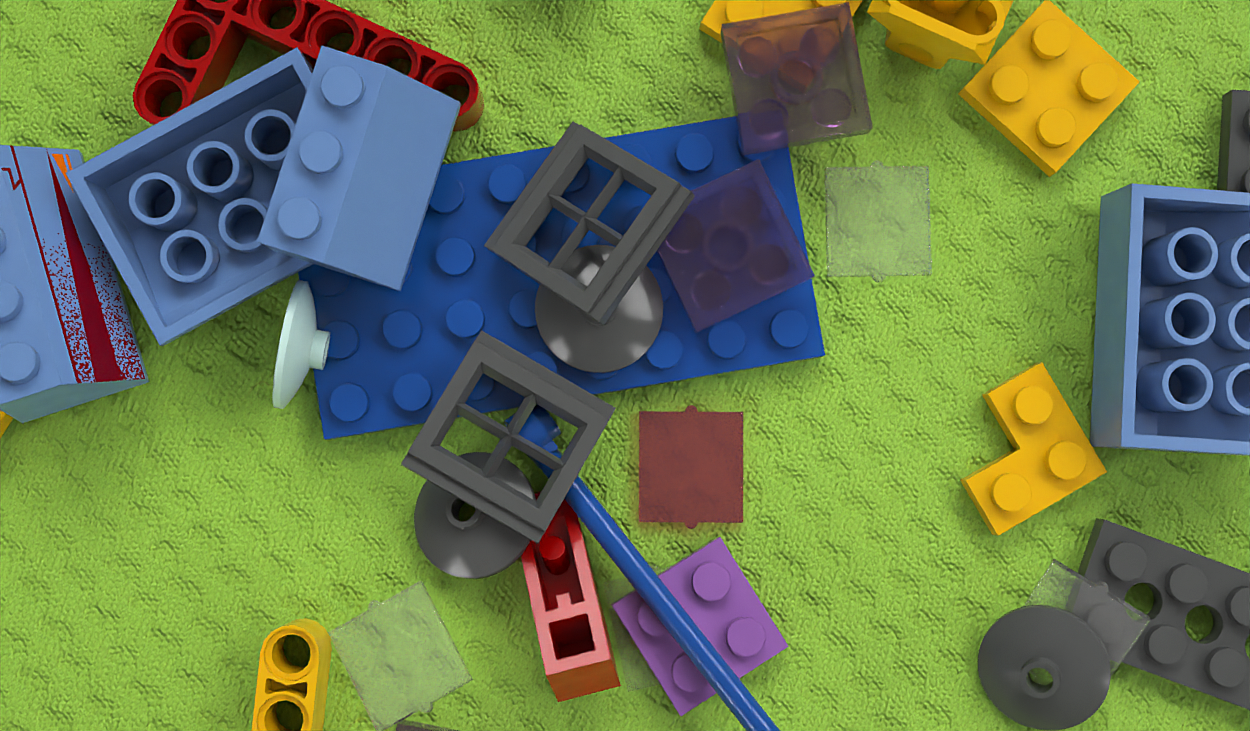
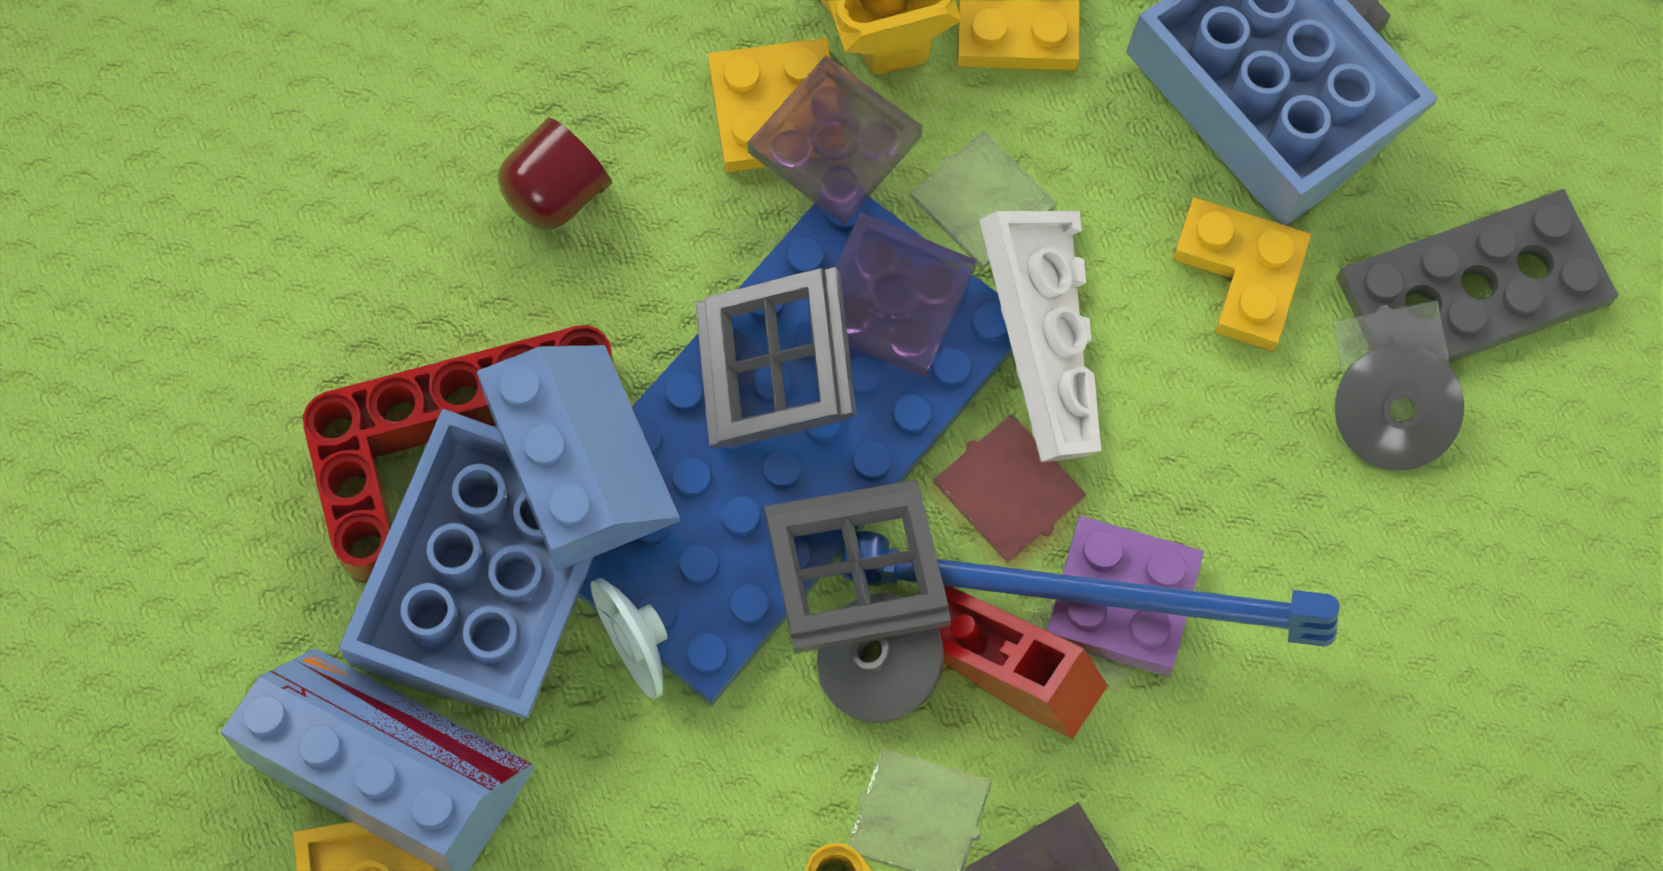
camera: 40 degrees left, 15 degrees down
(587, 343) = (845, 449): dark grey dish -> none
(840, 345) = (1040, 305): none -> white wing

